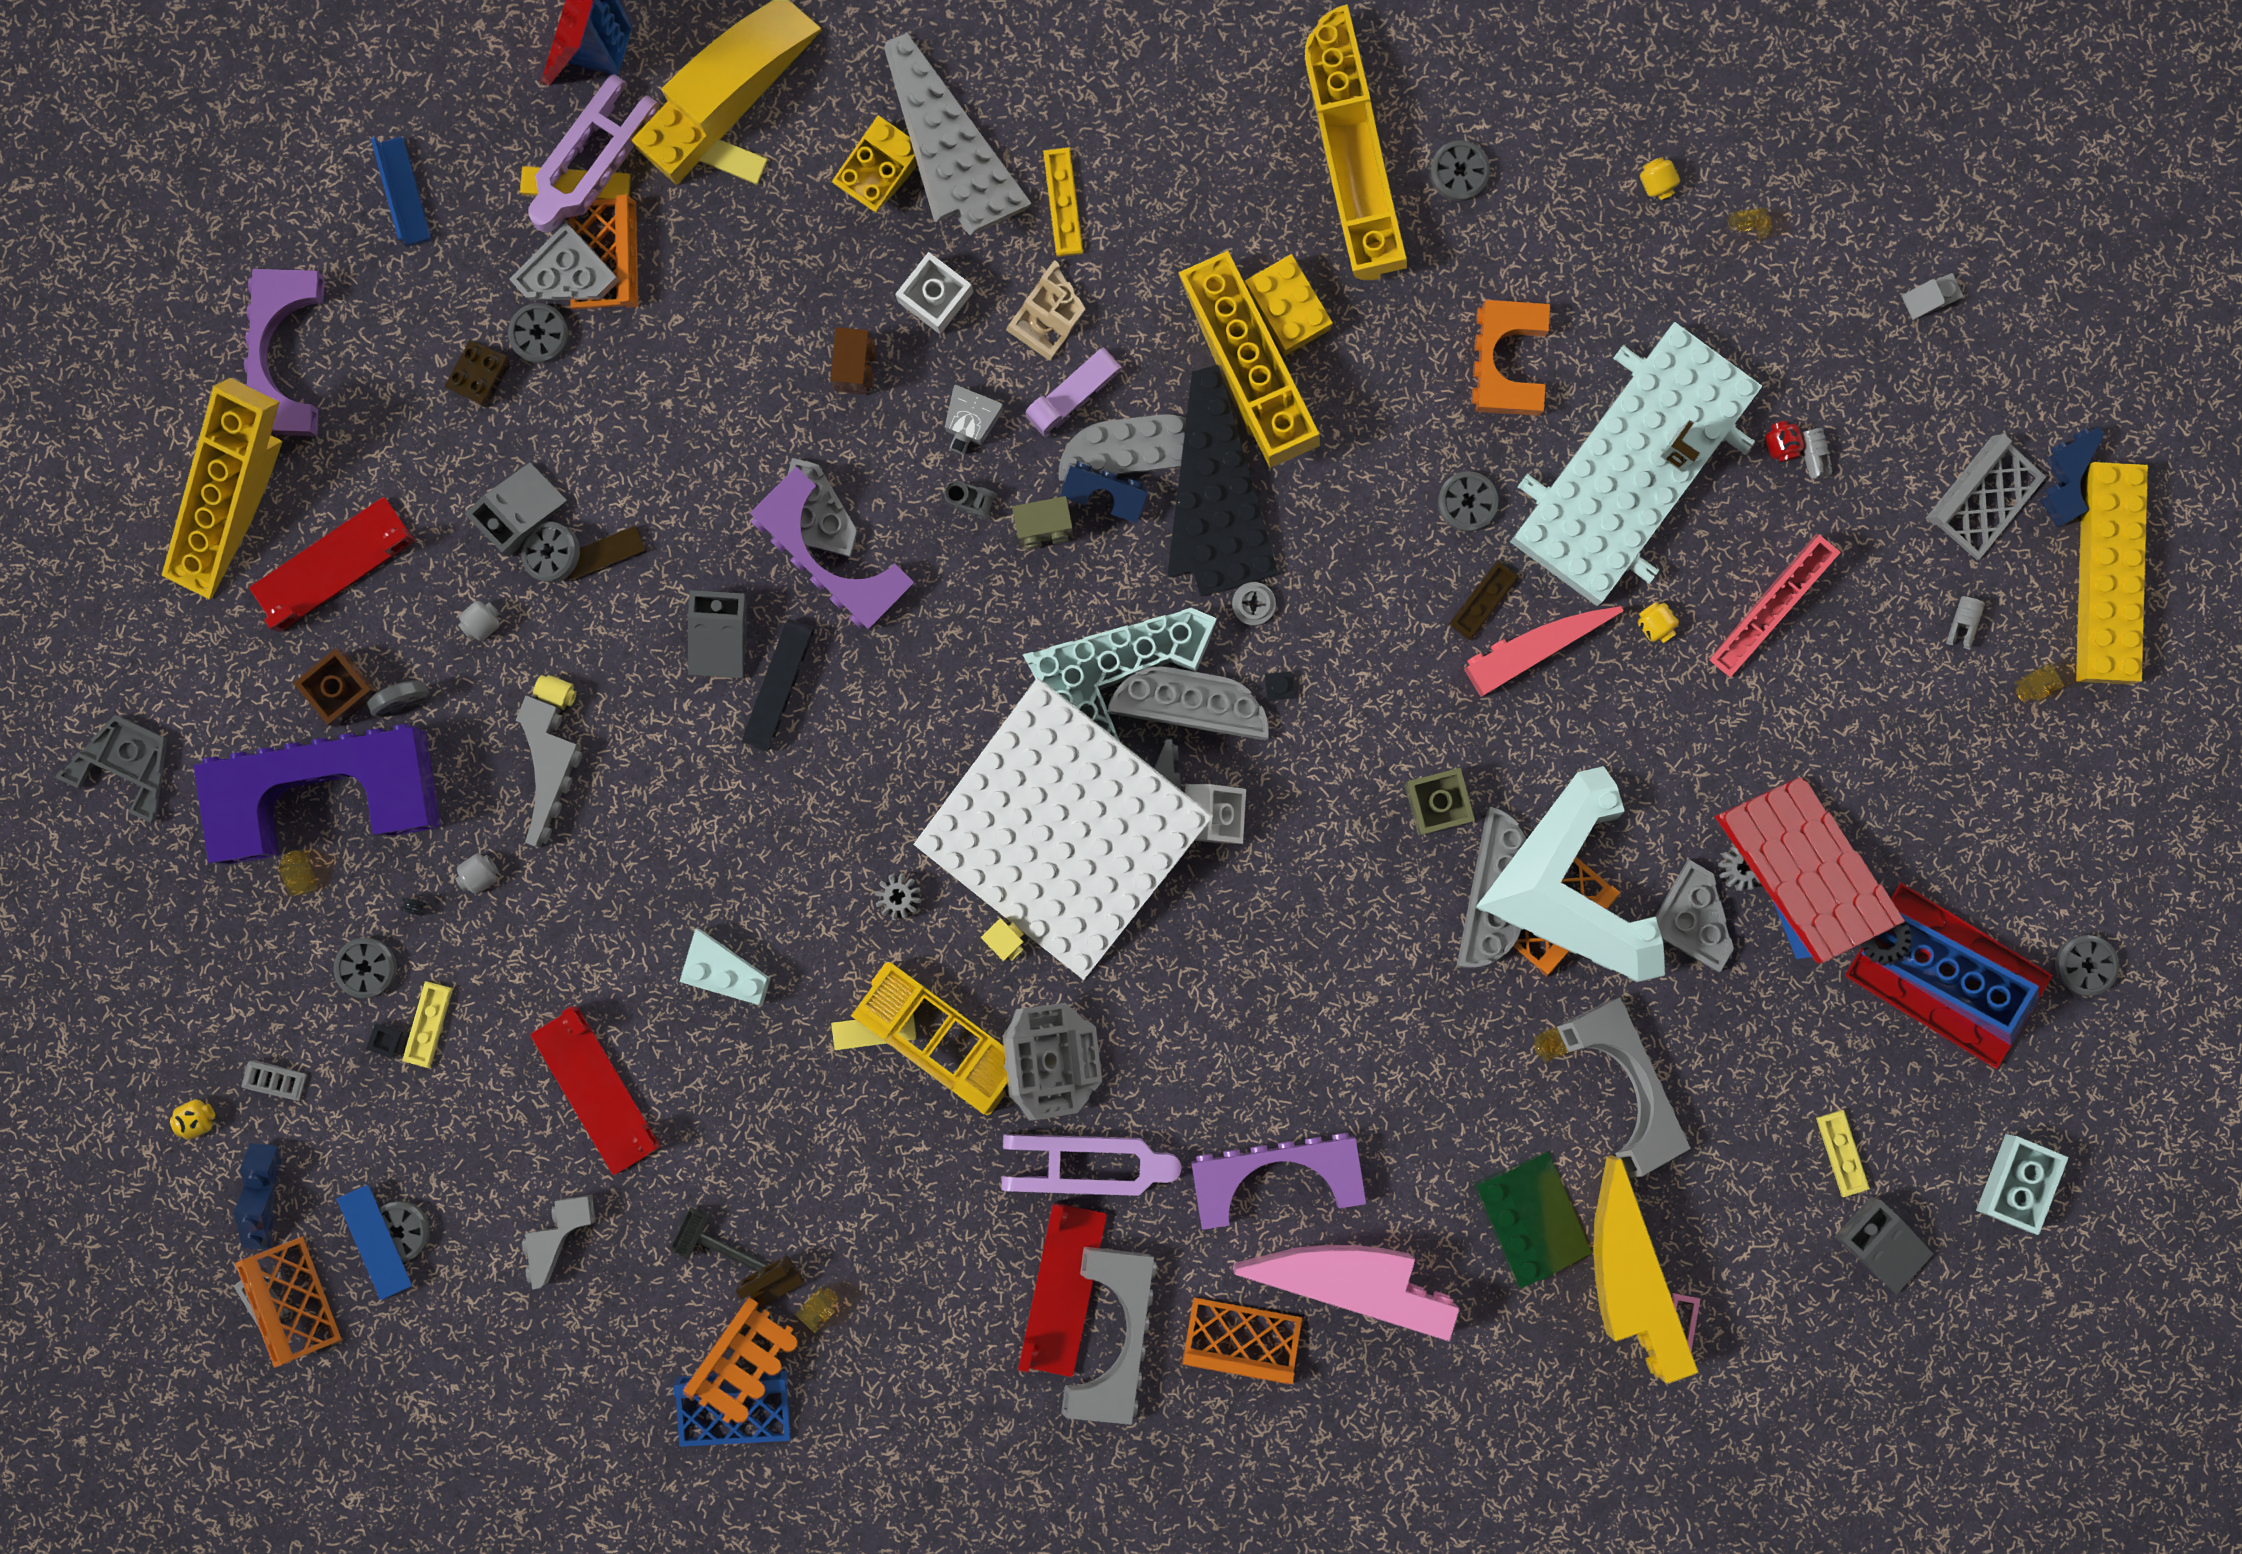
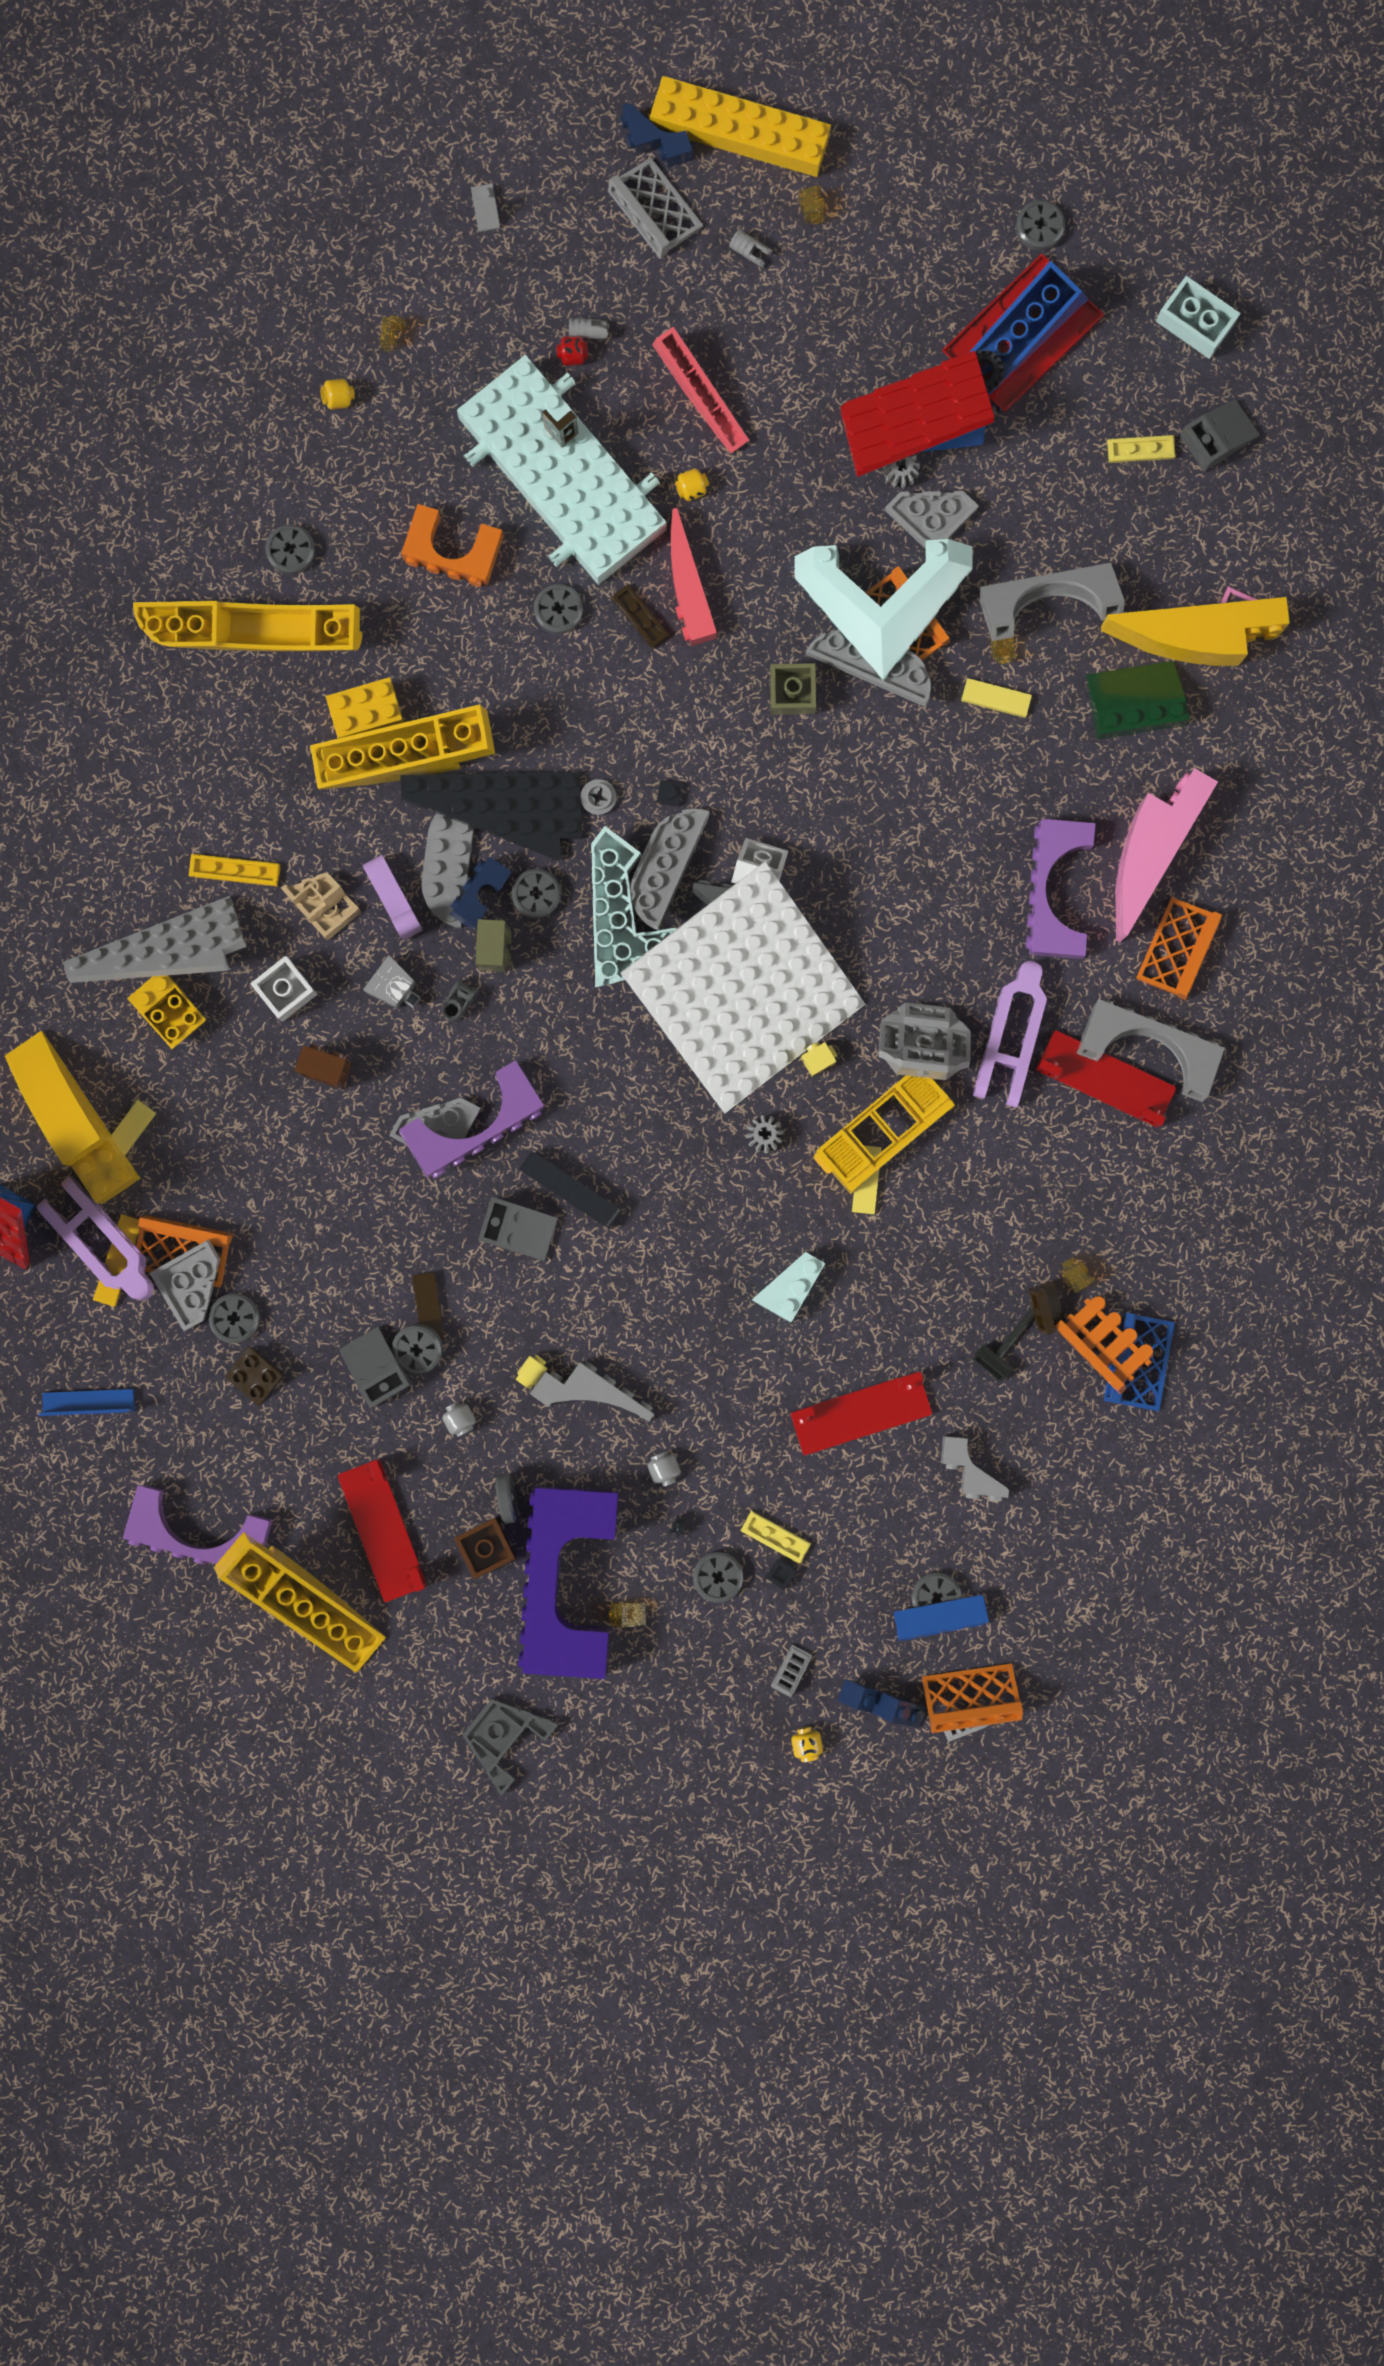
camera: 75 degrees left, 0 degrees up
(1105, 552) = (545, 883): none -> dark grey wheel
(1492, 1049) = (996, 698): none -> light yellow tile

